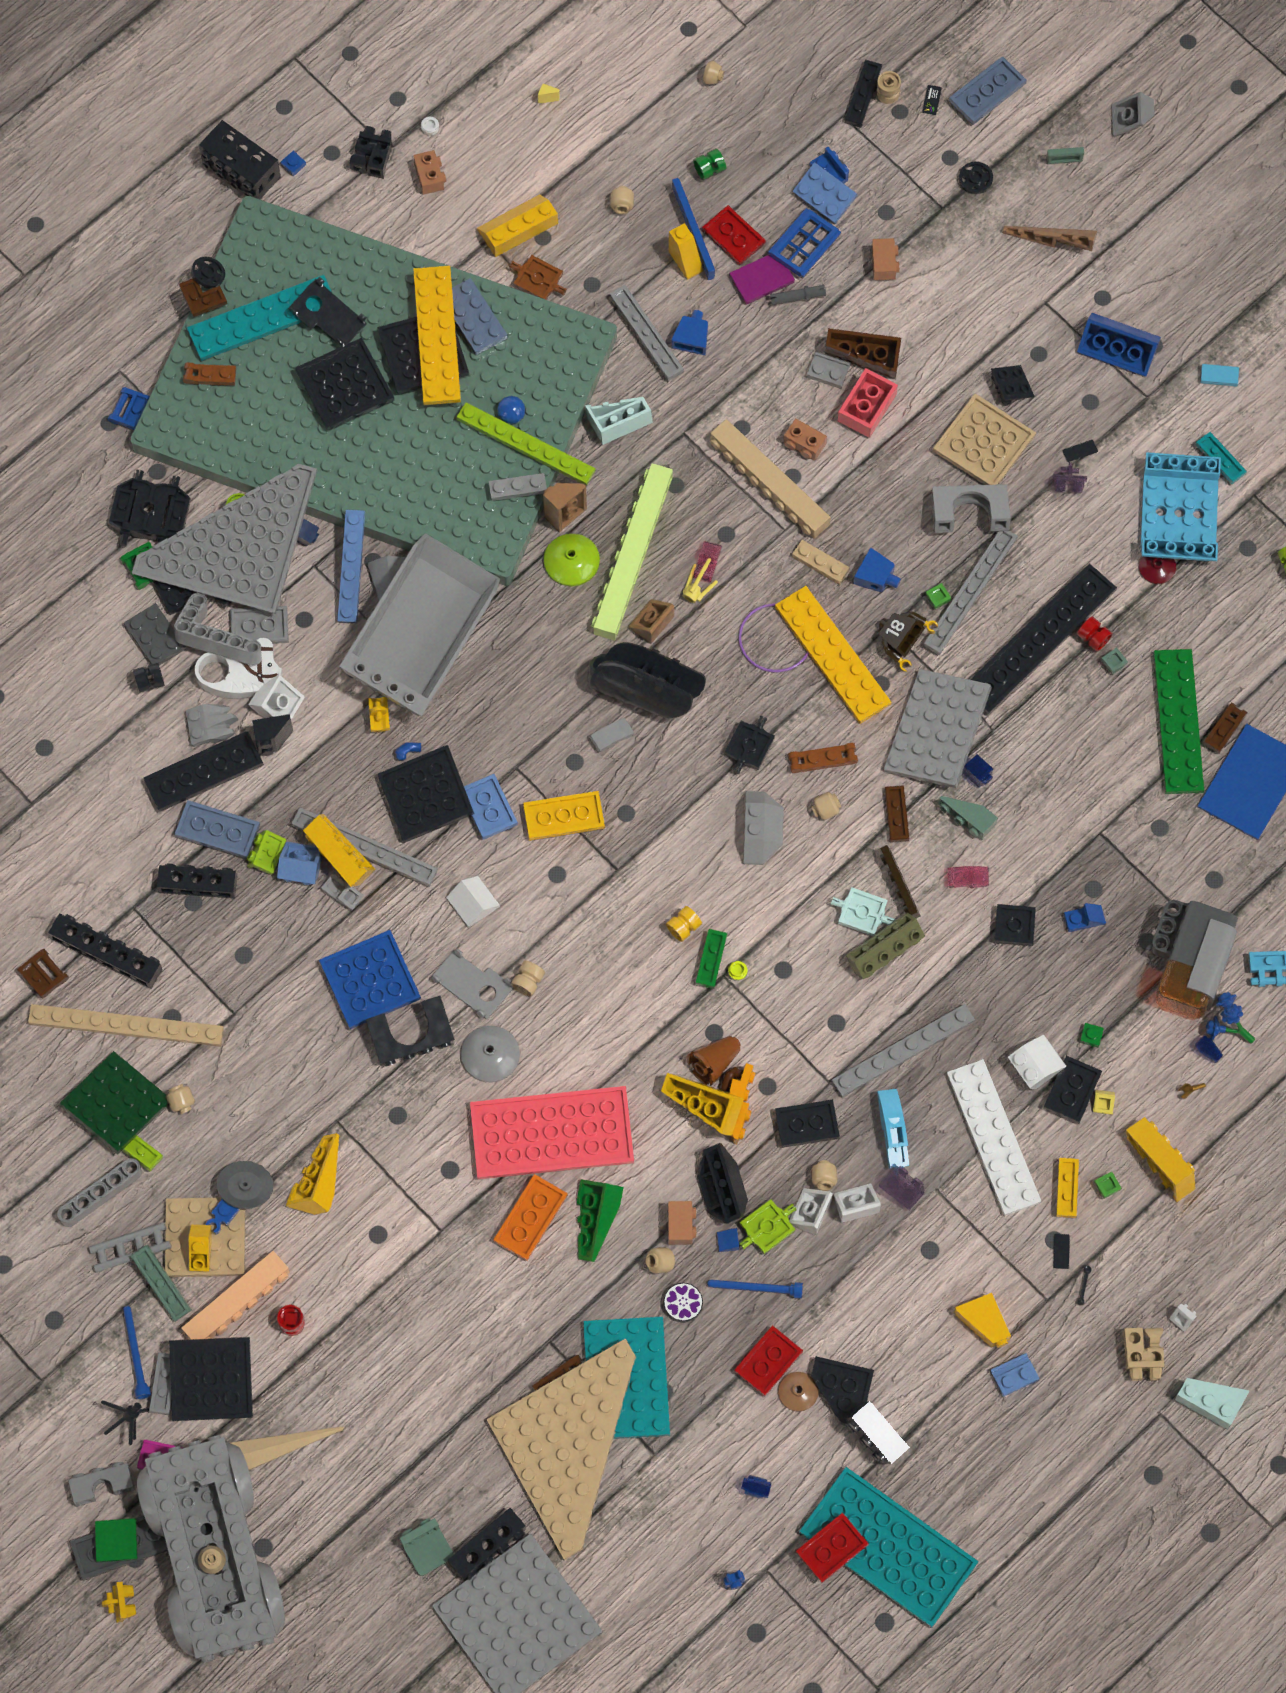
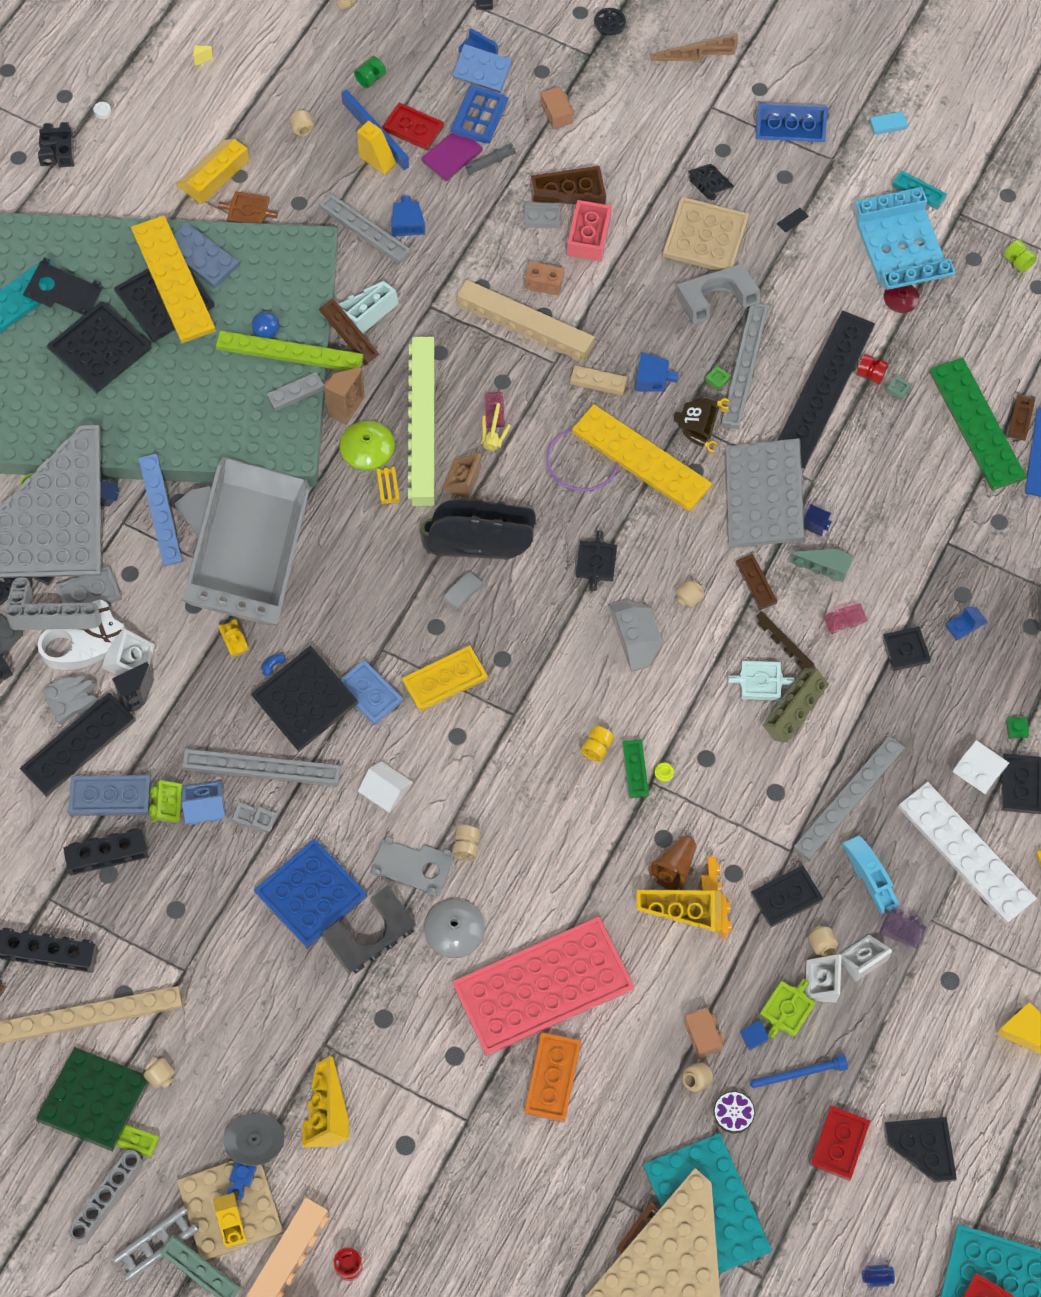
camera: 20 degrees left, 5 degrees down
(338, 851) = (238, 778): yellow wedge -> none
(429, 172) = (115, 148): nougat brick -> none
(580, 592) = (386, 472): none -> yellow tile
(591, 439) = (348, 331): none -> reddish brown plate
(598, 1209) = (617, 1050): green wedge -> none
(721, 1184) = (729, 983): black wedge -> none
(735, 1072) = (695, 876): reddish brown arm -> none
(798, 1401) = (872, 1170): medium nougat dish -> none
(822, 758) = (668, 552): dark orange plate -> none
(875, 1433) = (977, 1180): brick -> none
(1060, 480) = (802, 244): clear purple hips -> none

